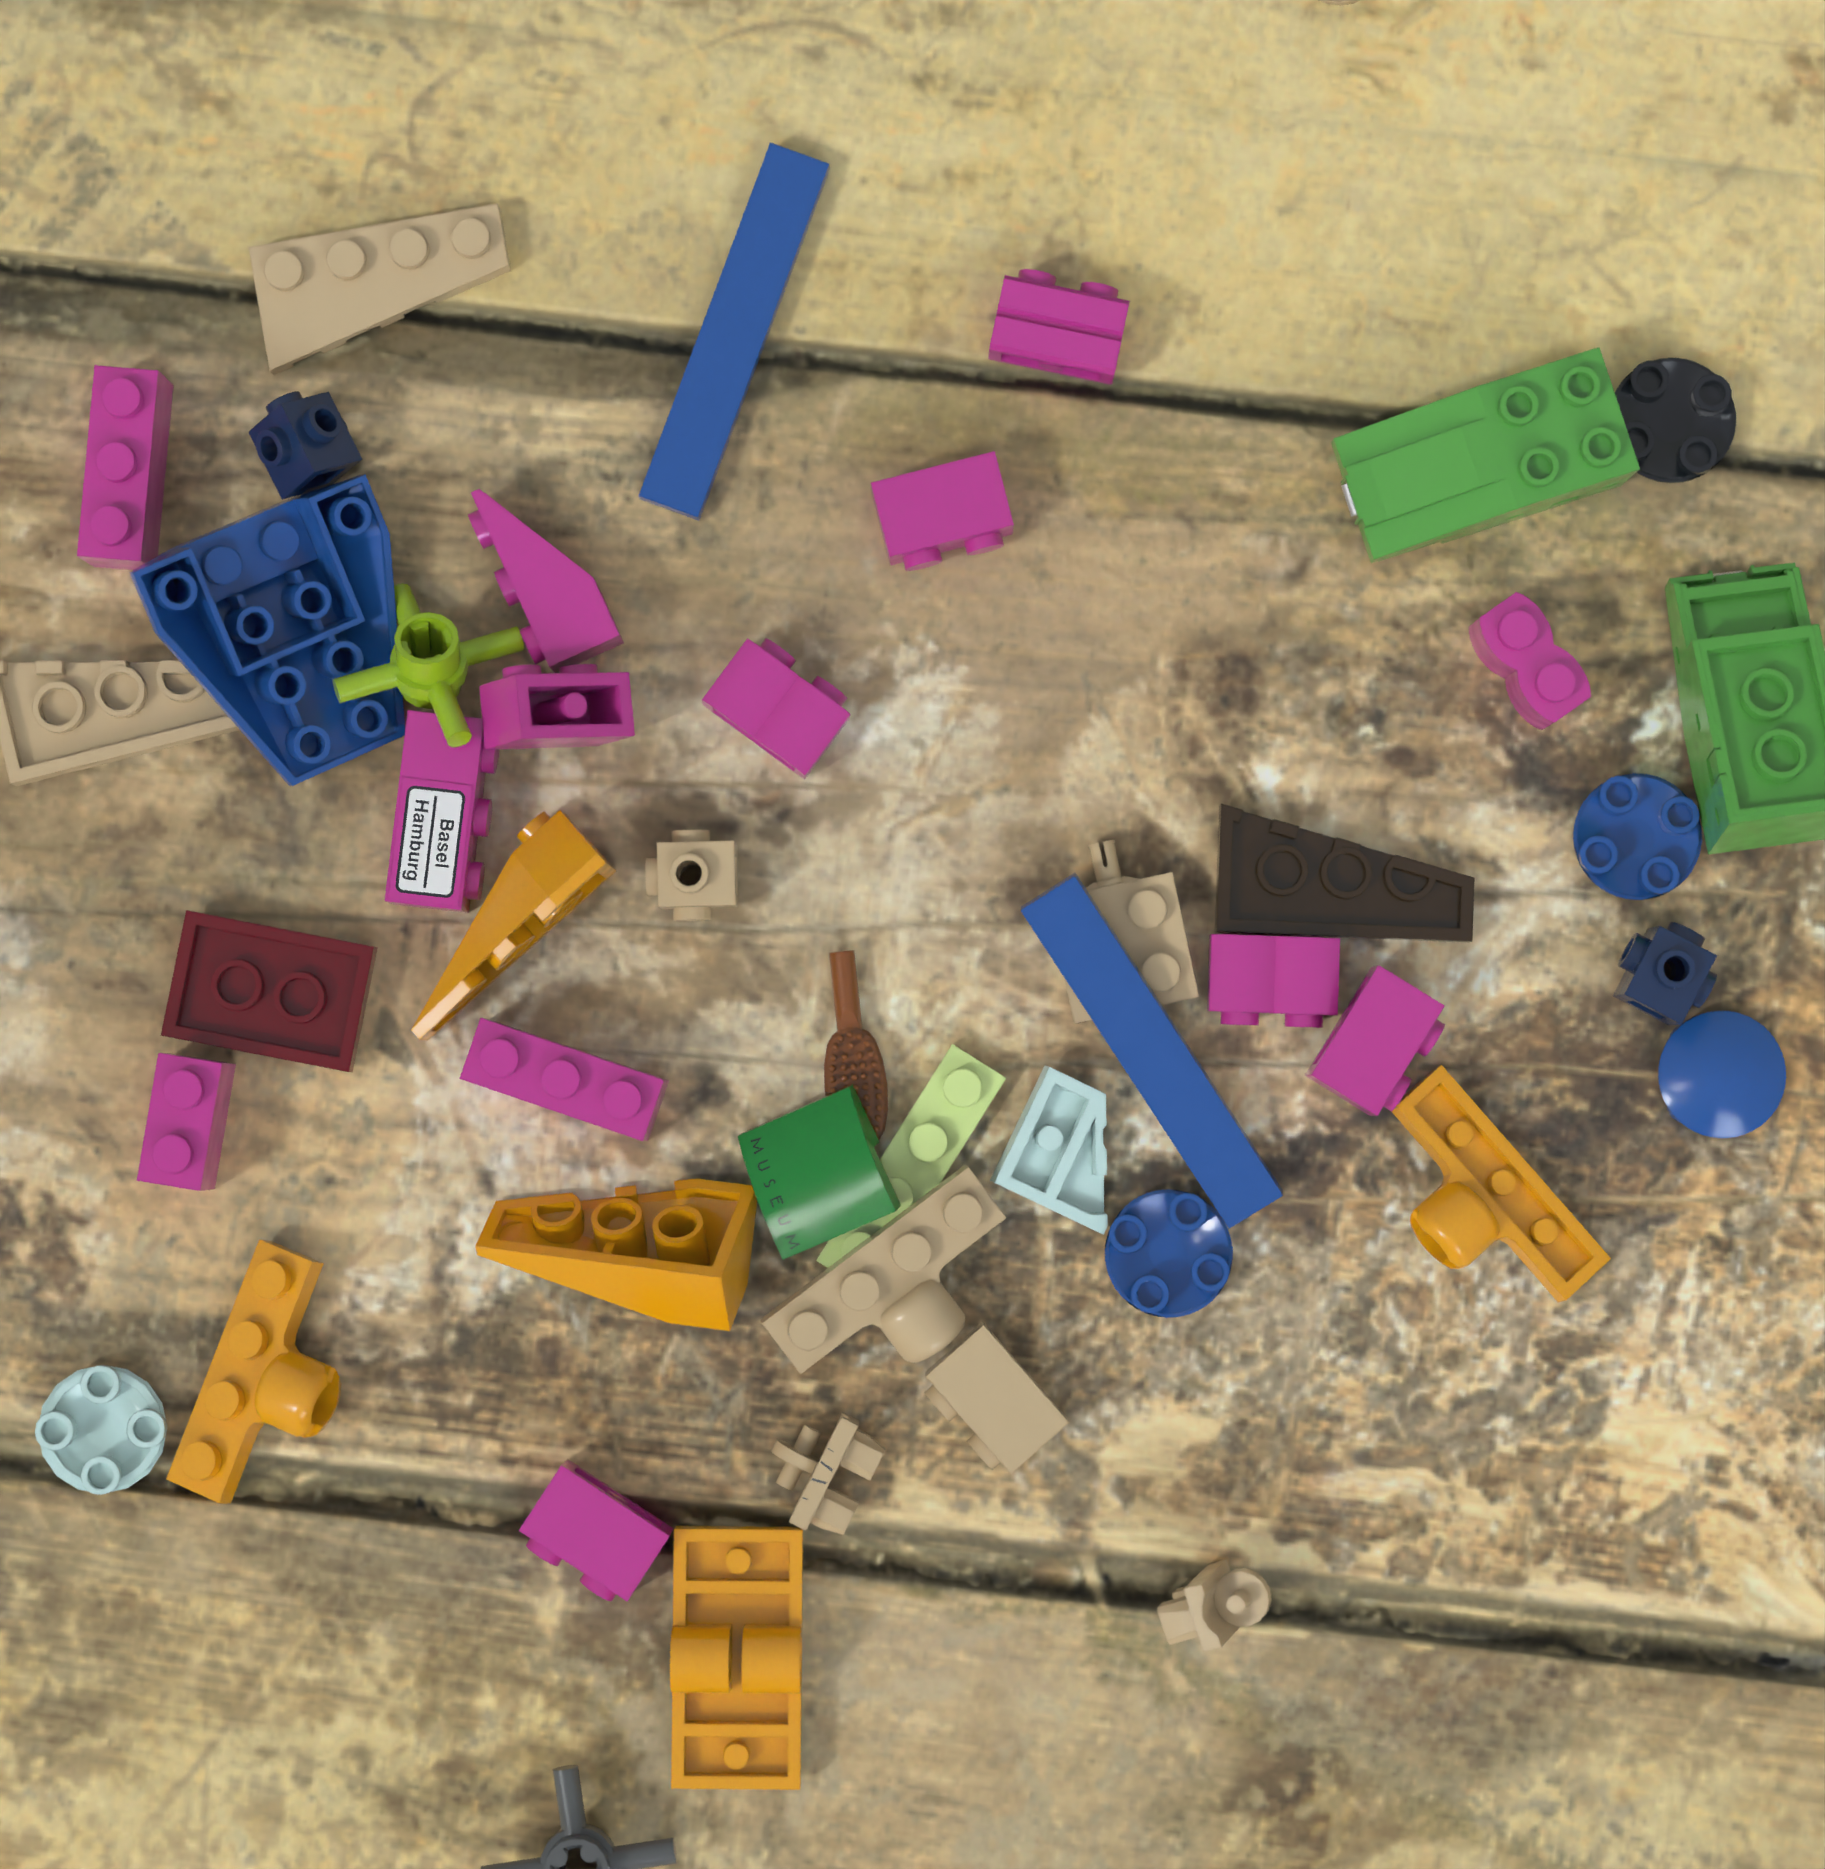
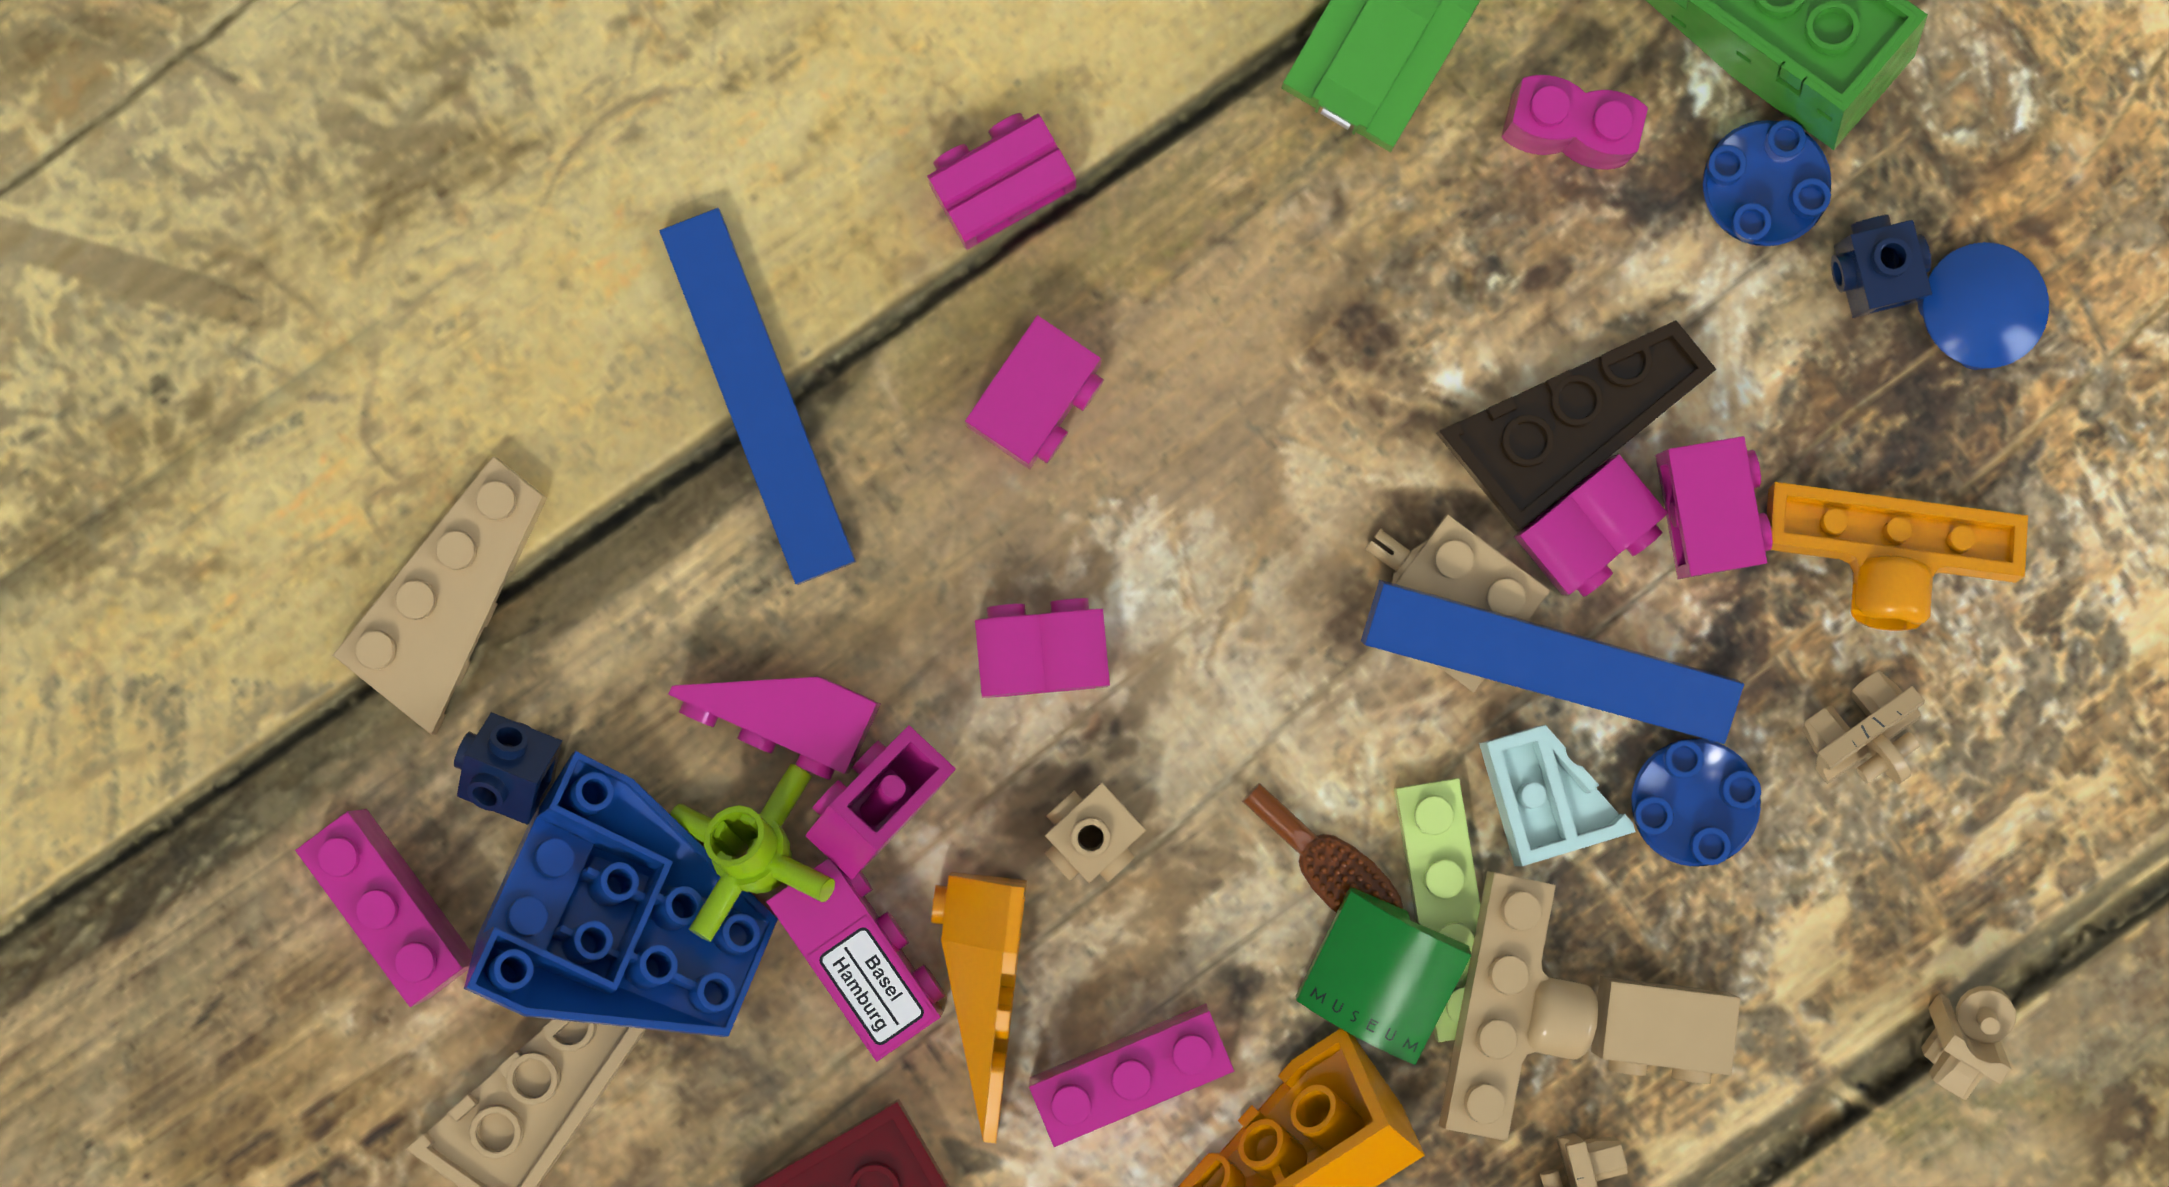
camera: 45 degrees left, 0 degrees up
(1344, 1324) = (1887, 715): none -> tan hips

